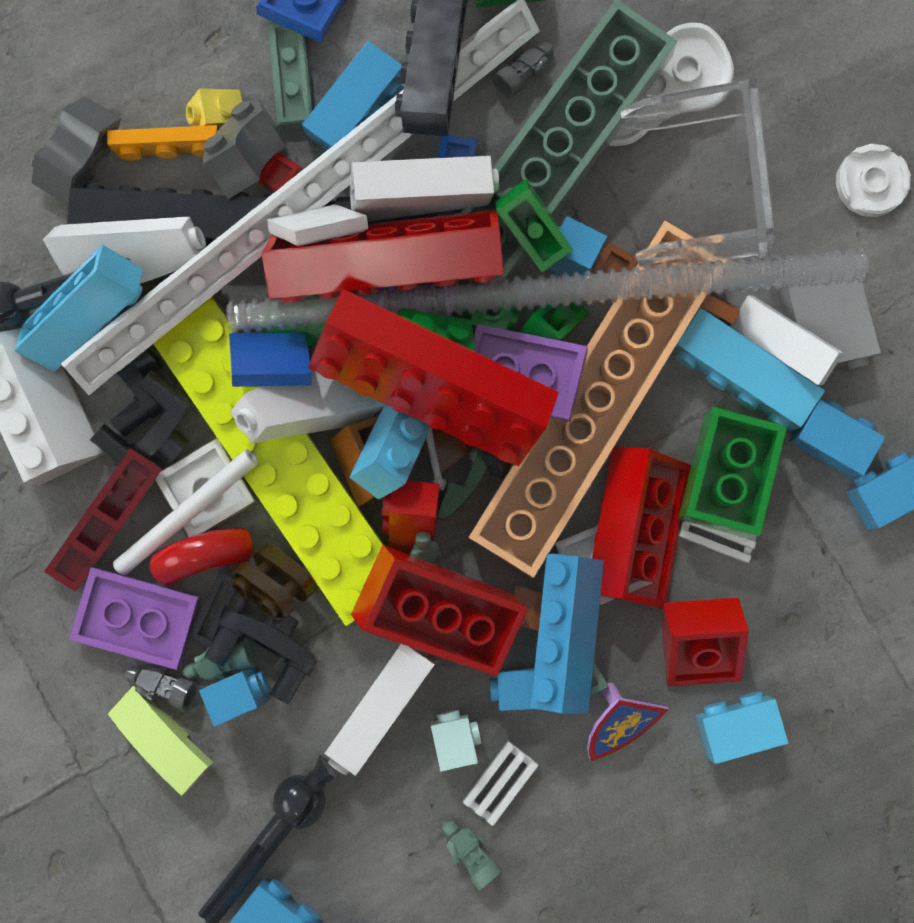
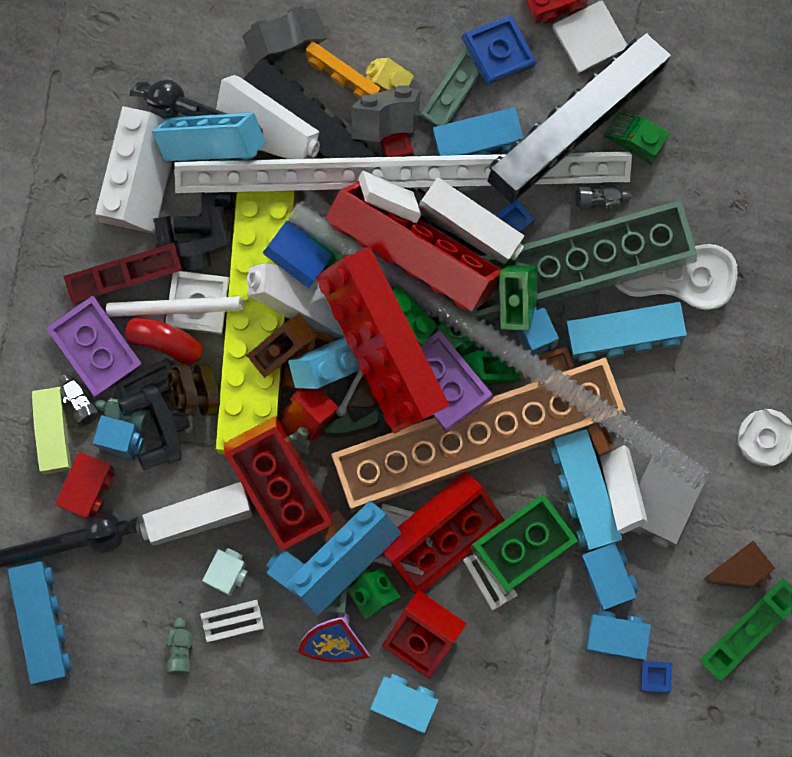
camera: 40 degrees right, 5 degrees down
(242, 769) = (85, 486): none -> red brick
(329, 466) = (281, 345): none -> reddish brown slope
(621, 642) = (373, 592): none -> green brick
(654, 182) = (626, 331): none -> medium azure brick
(702, 106) = (678, 373): clear piece -> none

